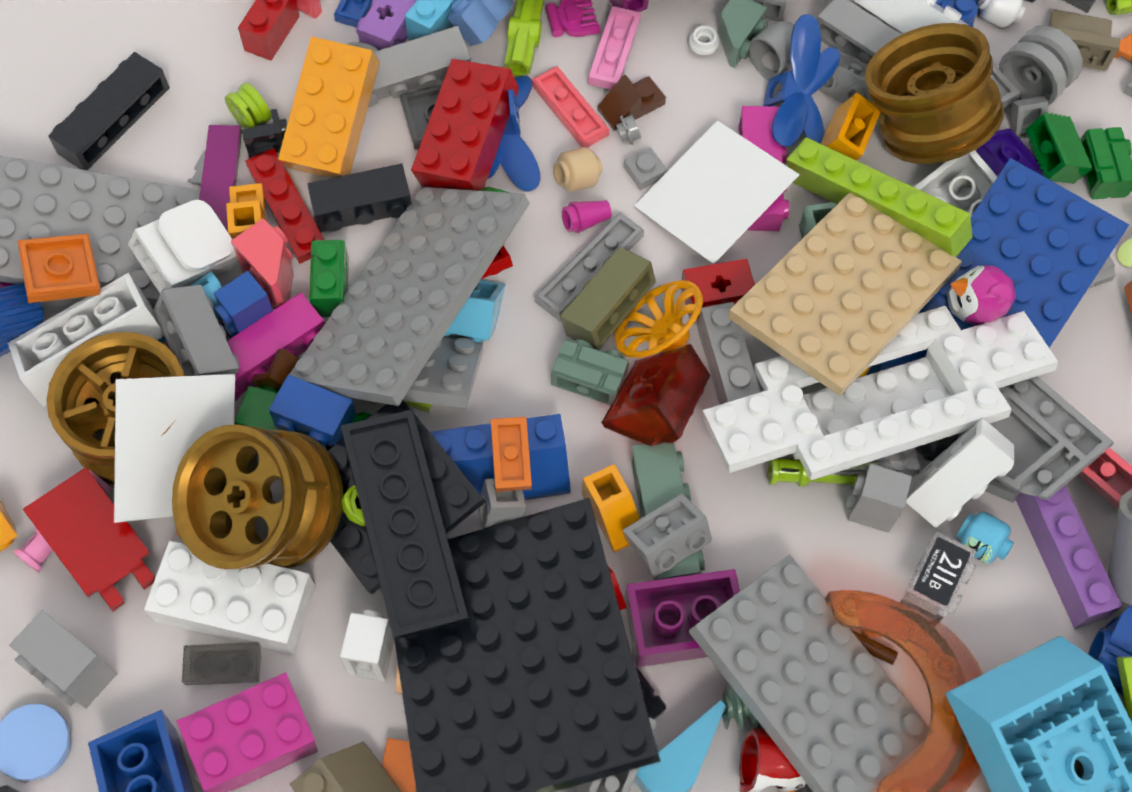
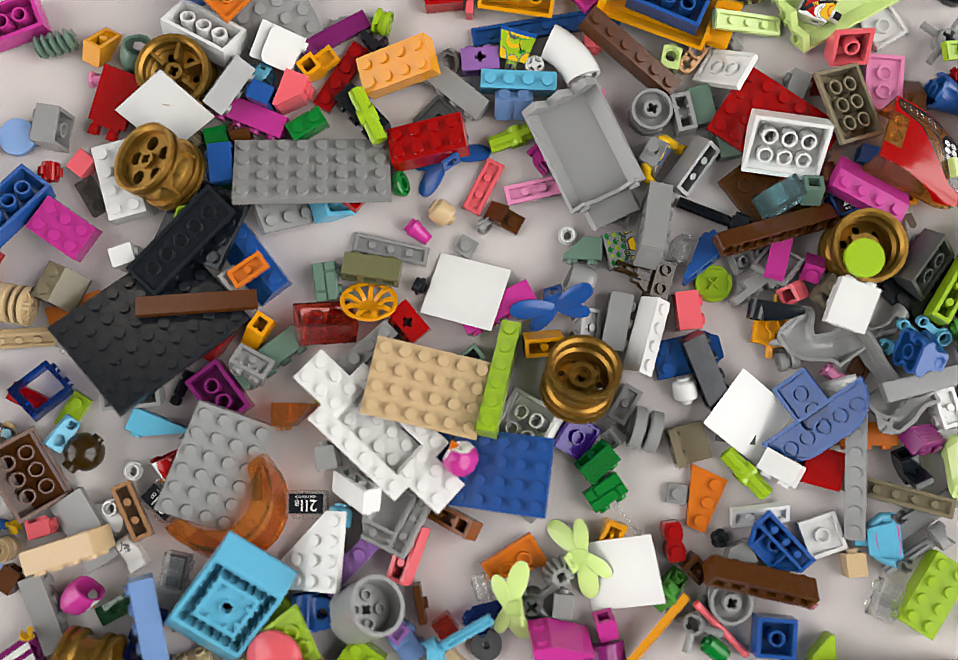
camera: 65 degrees right, 20 degrees up
(44, 469) = (128, 54): none -> sand green piece
(130, 706) = (50, 171): none -> red gear
(157, 645) = (82, 164): none -> coral panel
(375, 178) = (367, 115): none -> lime piece
(517, 563) = (196, 303): none -> reddish brown tile
(670, 250) = (419, 286): none -> black plate
(780, 522) = (287, 415): none -> clear orange slope
(1043, 585) = (319, 555): none -> white wing
(1076, 366) = (457, 522): none -> dark orange slope

